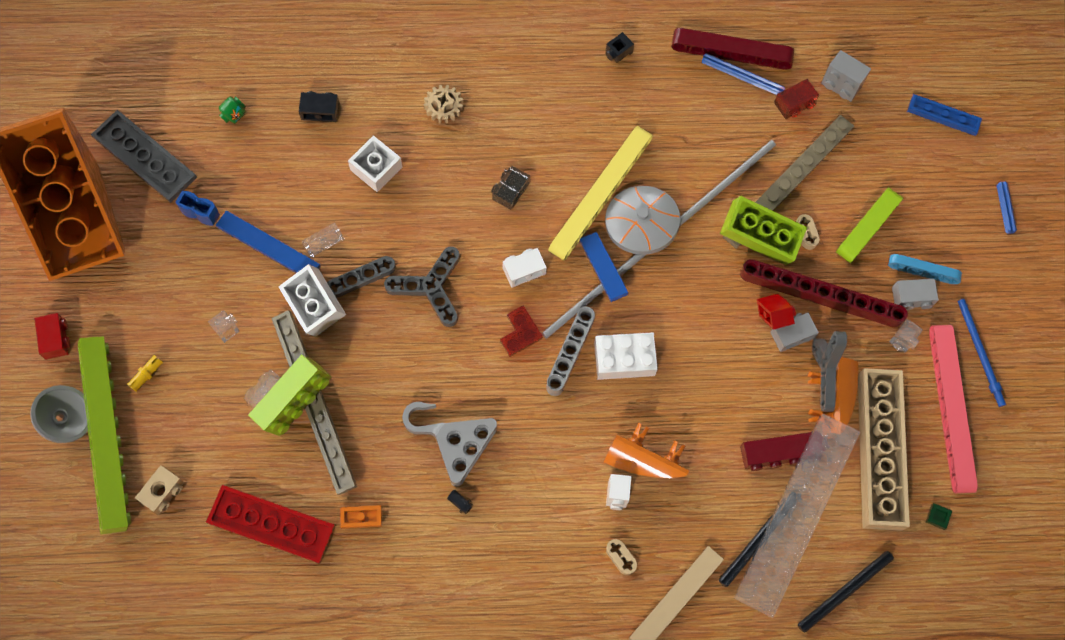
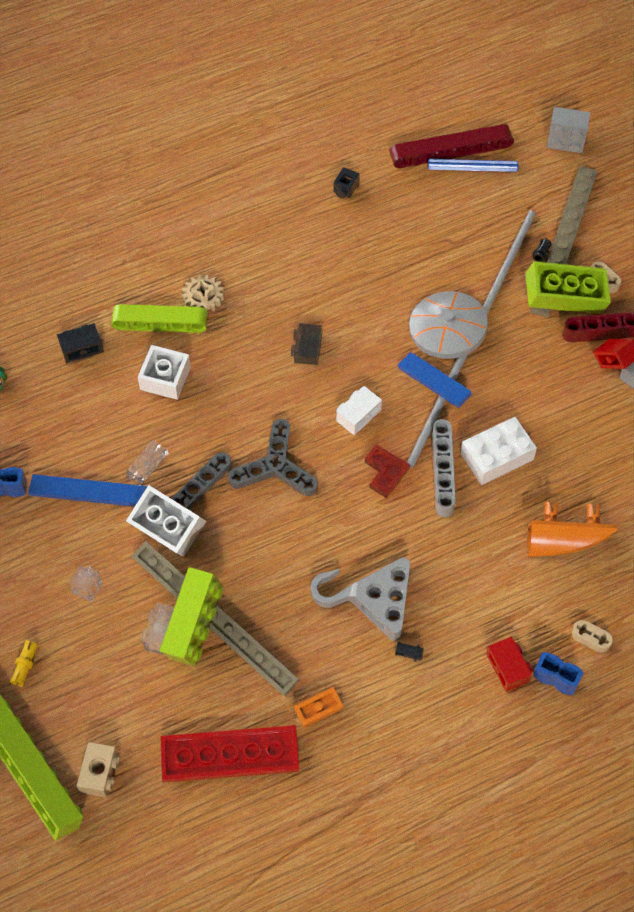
camera: 20 degrees left, 10 degrees down
(396, 111) = (159, 318): none -> lime beam
(537, 551) = (509, 663): none -> red brick
(576, 583) = (561, 675): none -> blue brick
(600, 193) = (396, 317): light yellow beam -> none
(618, 491) = (559, 573): white brick -> none
(762, 183) = (540, 253): none -> black pin
(796, 99) = (533, 167): clear red brick -> none

